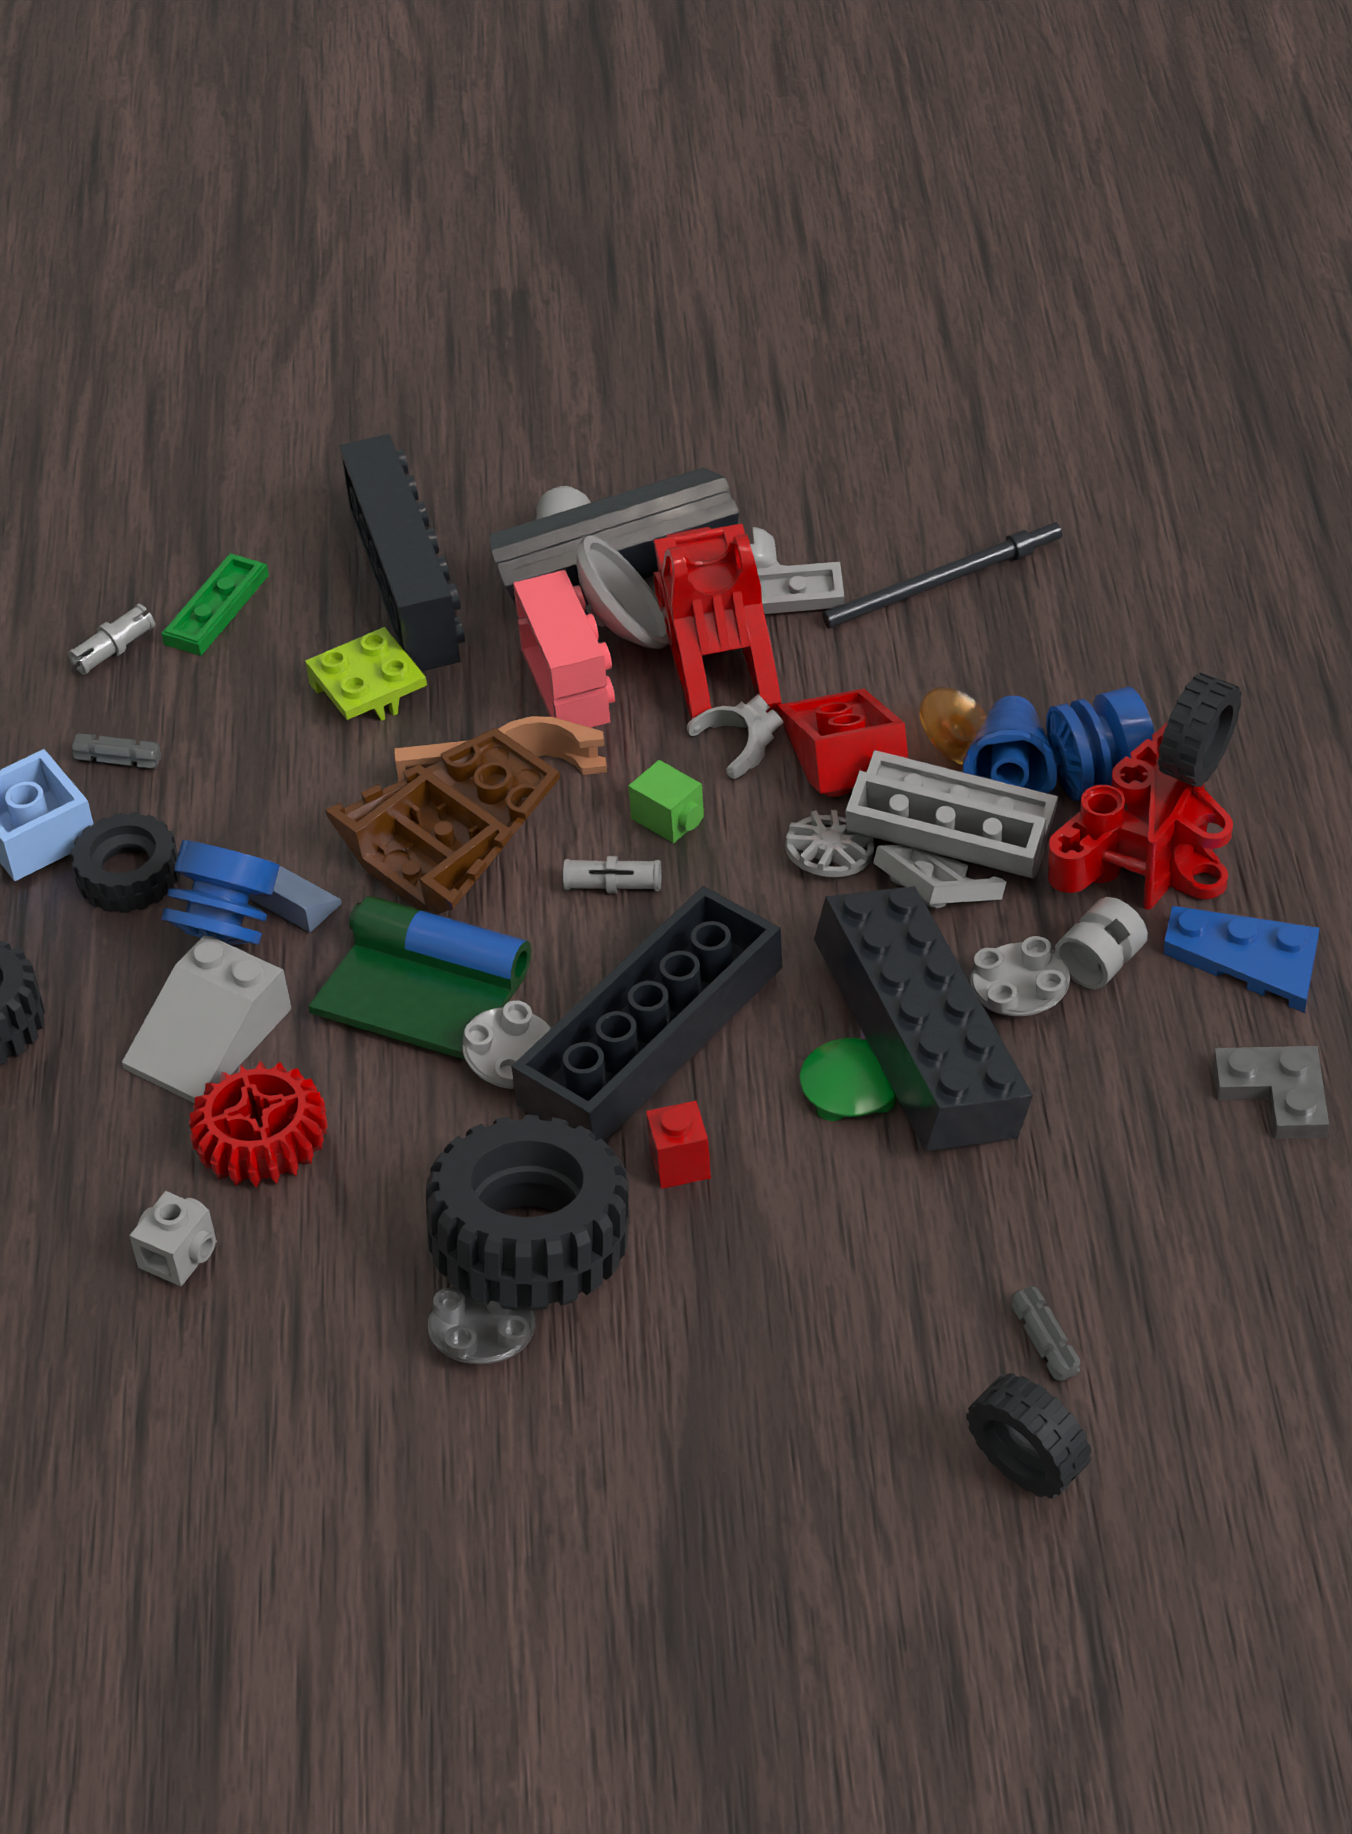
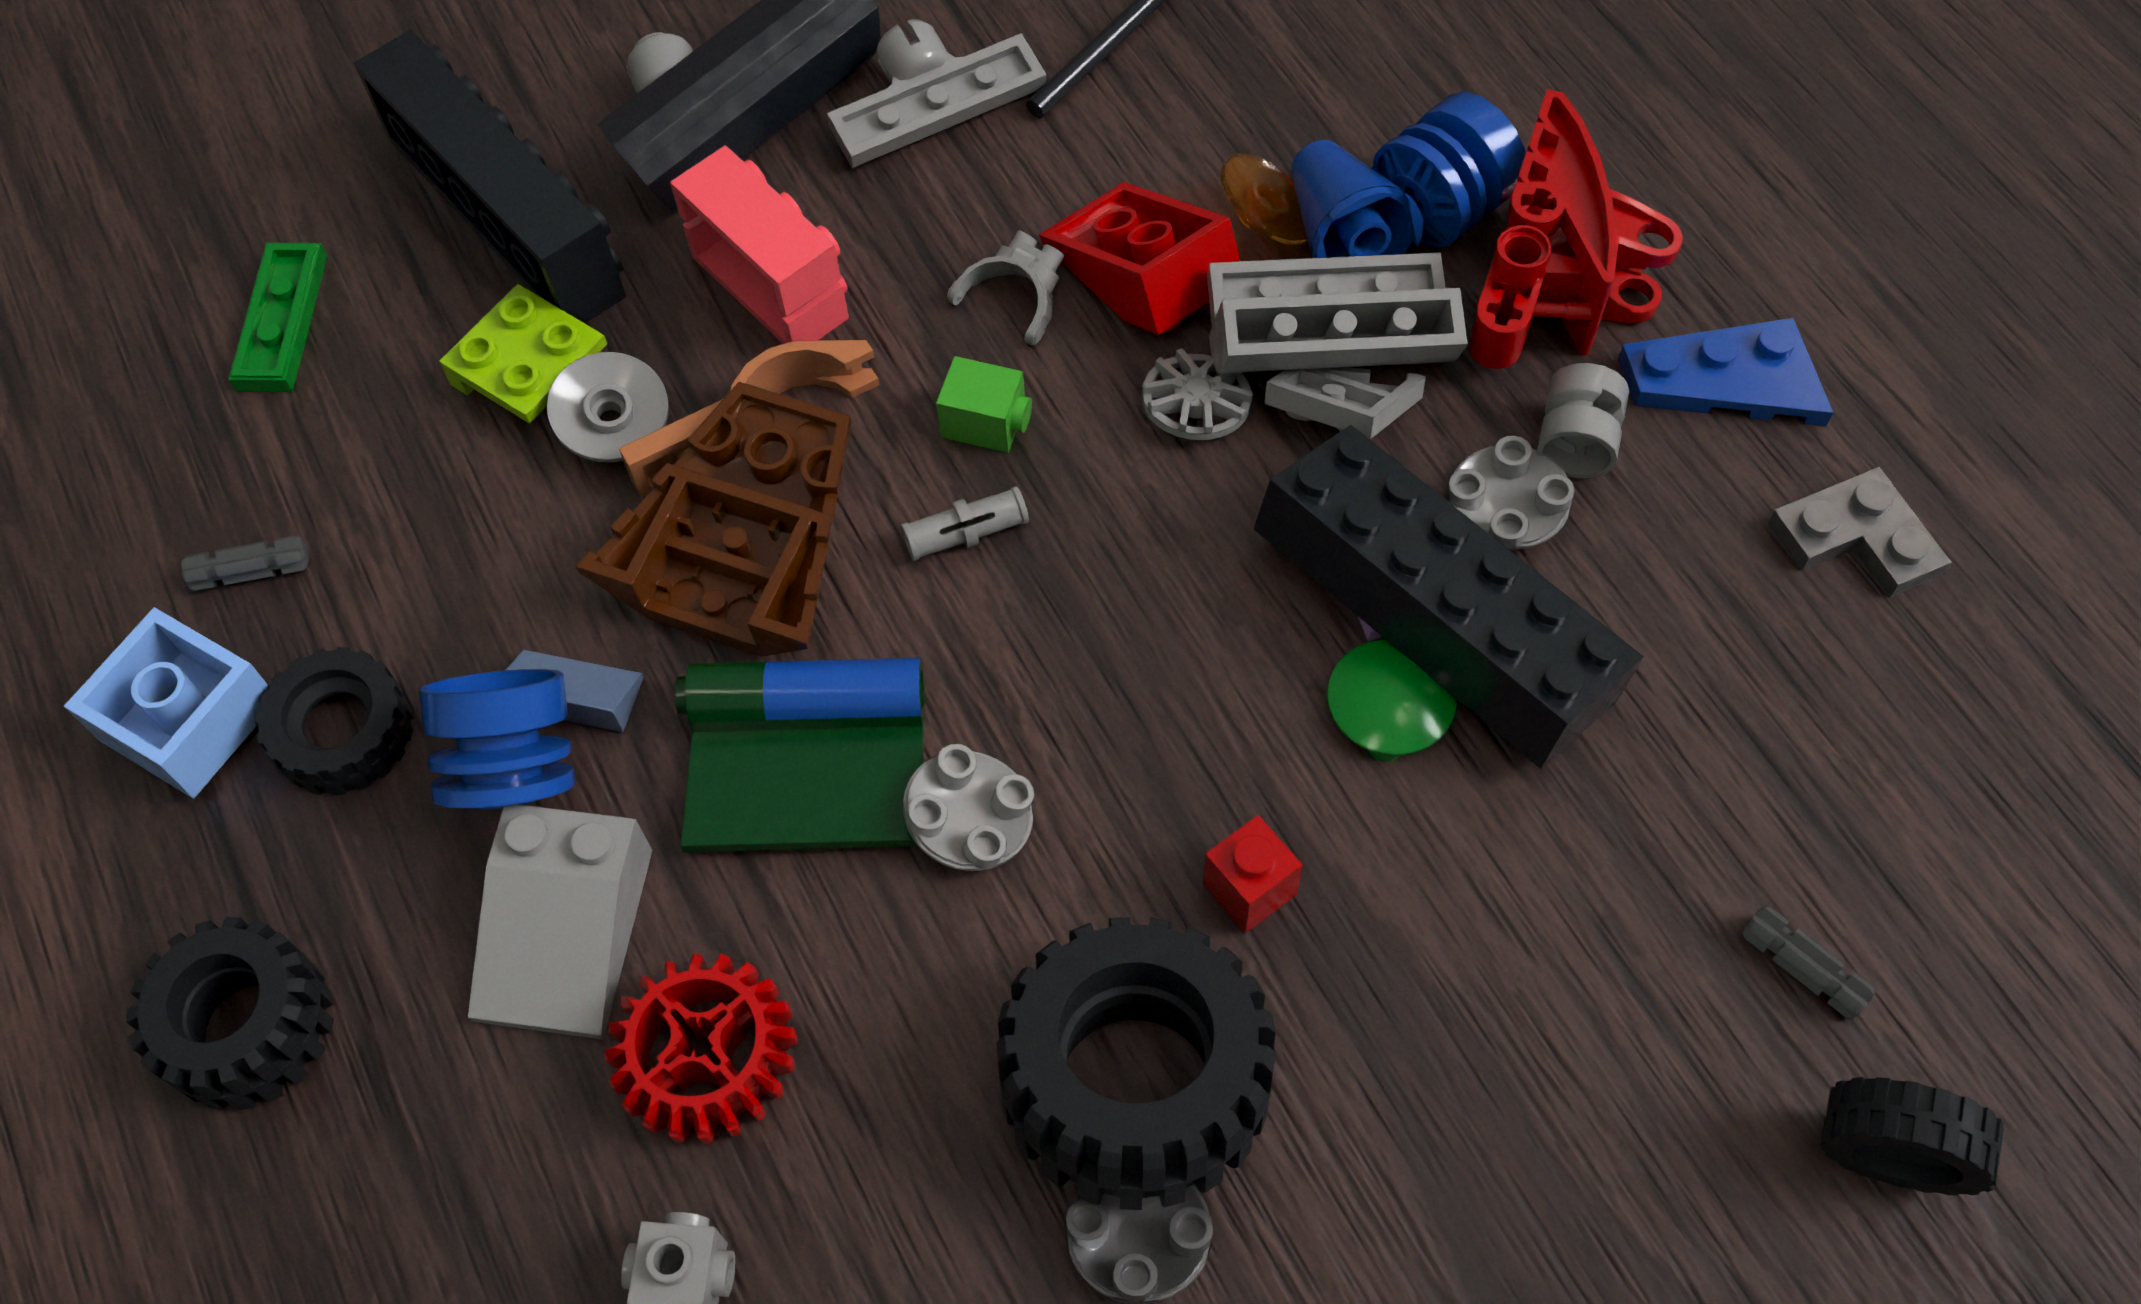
camera: 25 degrees left, 15 degrees up
(111, 639) = (165, 408): light grey pin -> none
(399, 711) = (603, 384): none -> light grey dish
(619, 595) = (794, 156): light grey dish -> none
(649, 1015) = (1122, 716): black brick -> none
(713, 606) = (919, 138): red piece -> none
(1199, 729) = (1616, 125): black tyre -> none

